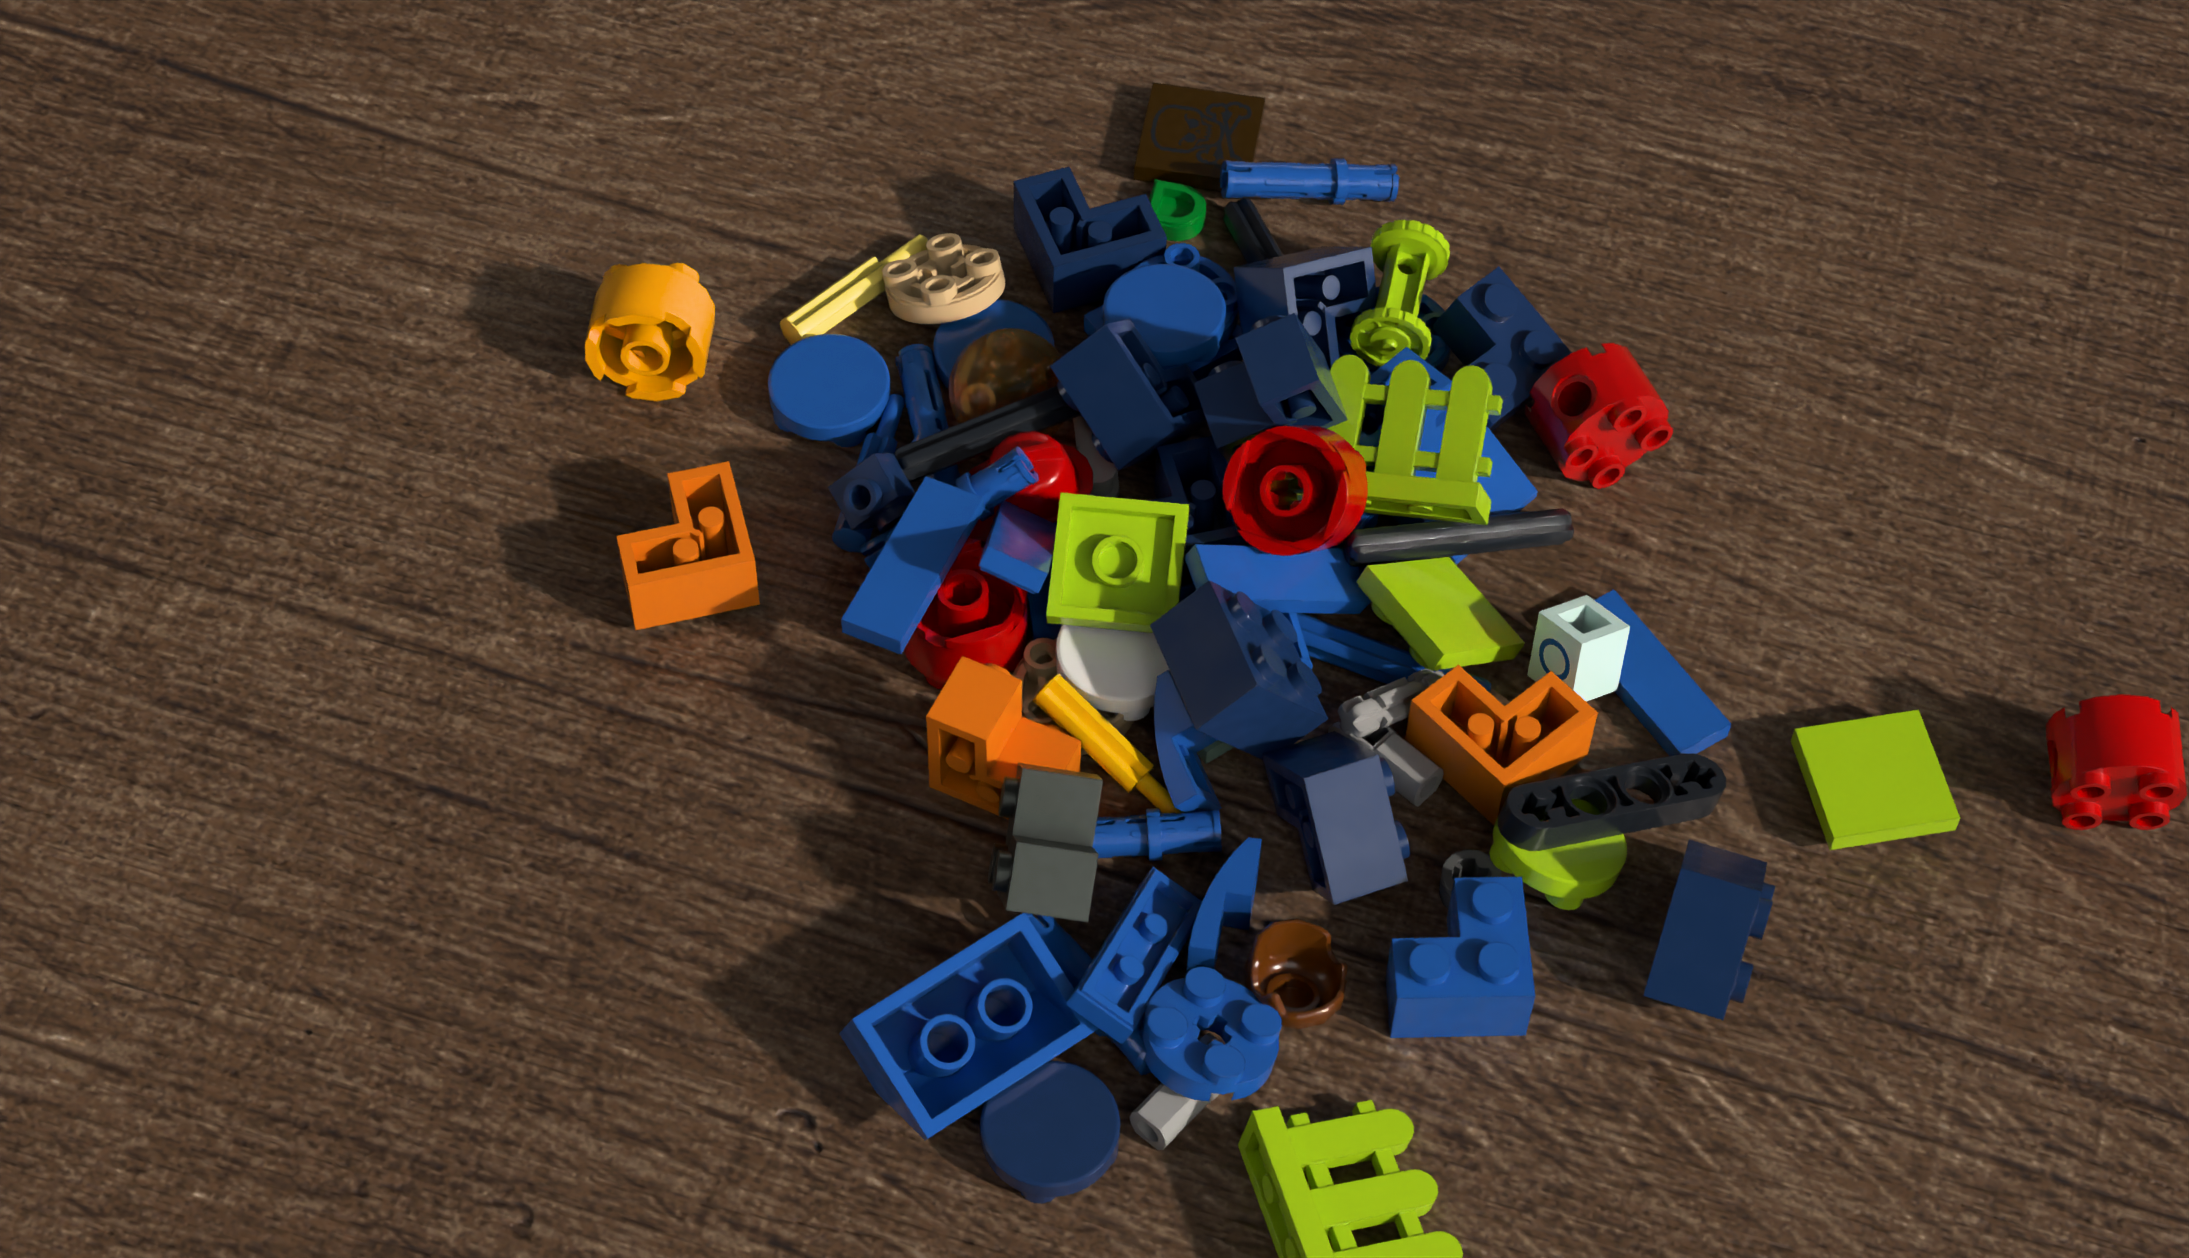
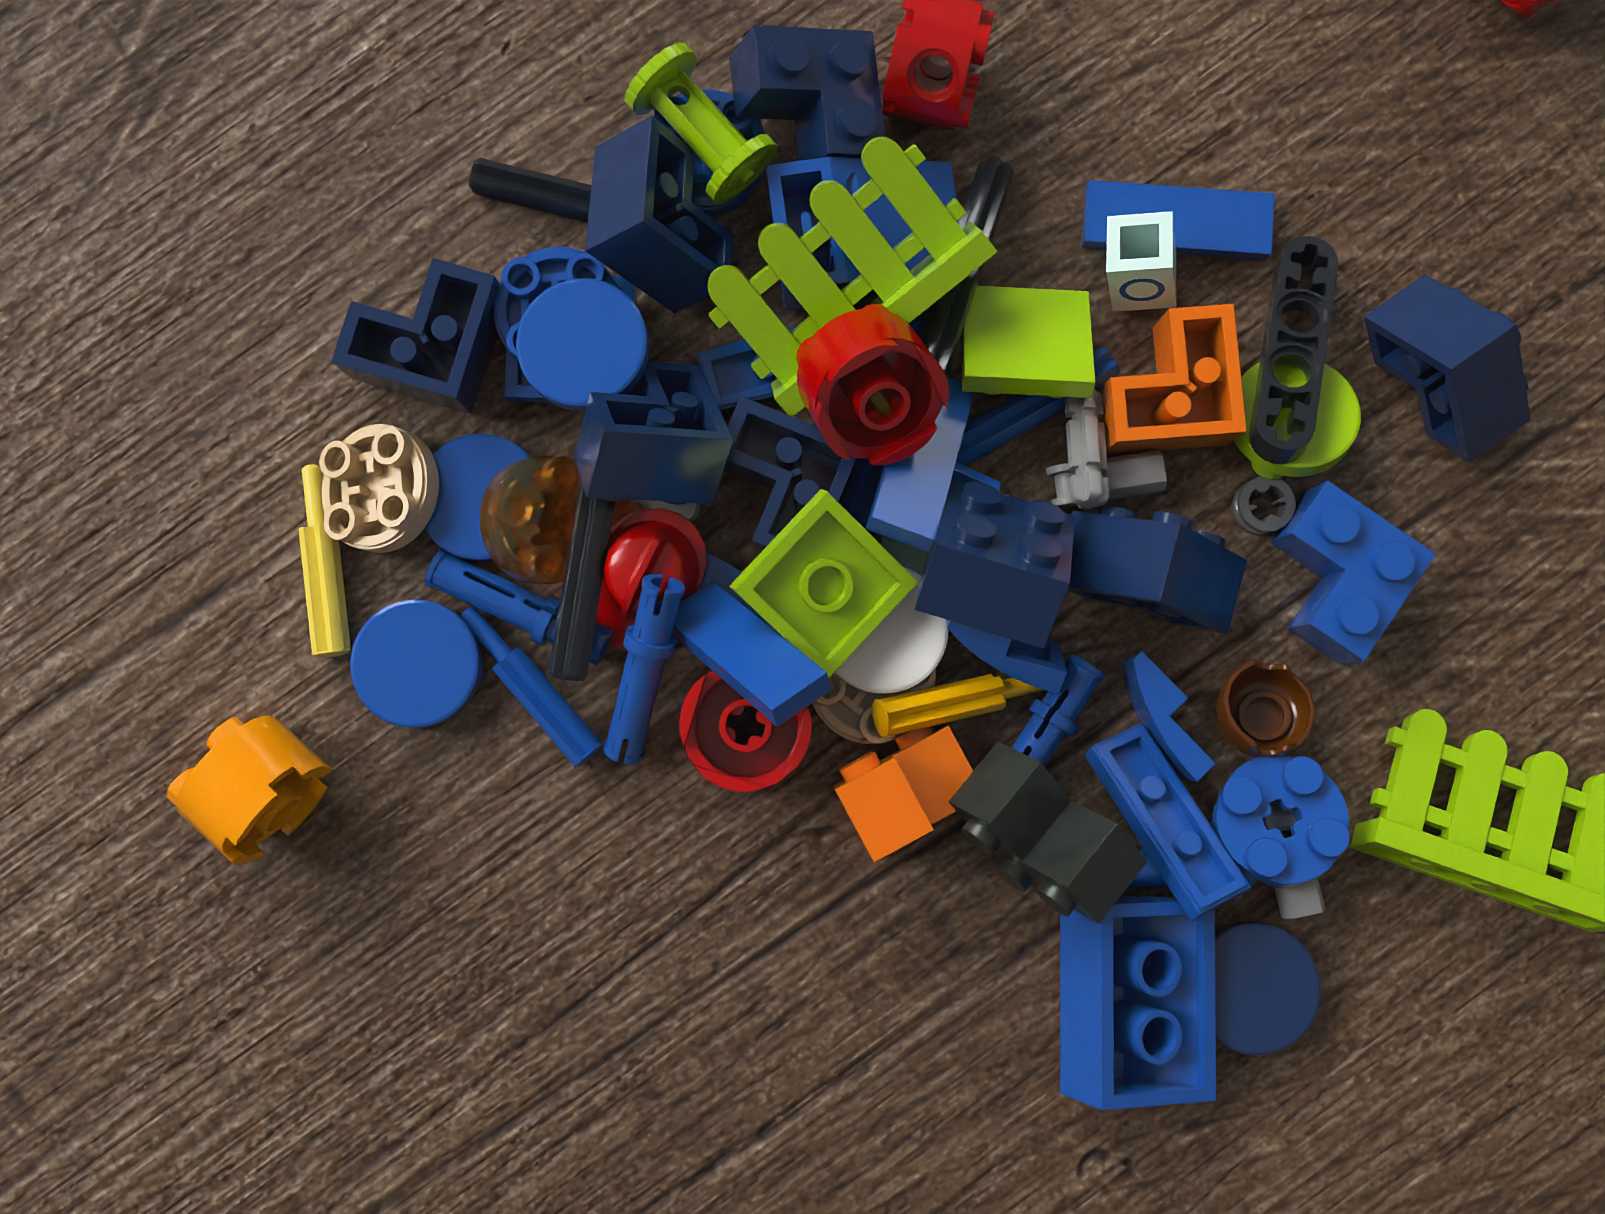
camera: 55 degrees left, 30 degrees up
(697, 563) = (536, 903): orange brick -> none
(873, 493) = (579, 719): dark blue plate -> none
(912, 565) = (697, 754): blue tile -> none
(1178, 209) = (436, 227): green tile -> none
(1193, 132) = (371, 145): dark brown tile -> none
(1276, 385) = (762, 333): dark blue brick -> none
(1322, 181) = (511, 73): blue pin -> none
(1874, 779) = (1401, 127): lime tile -> none

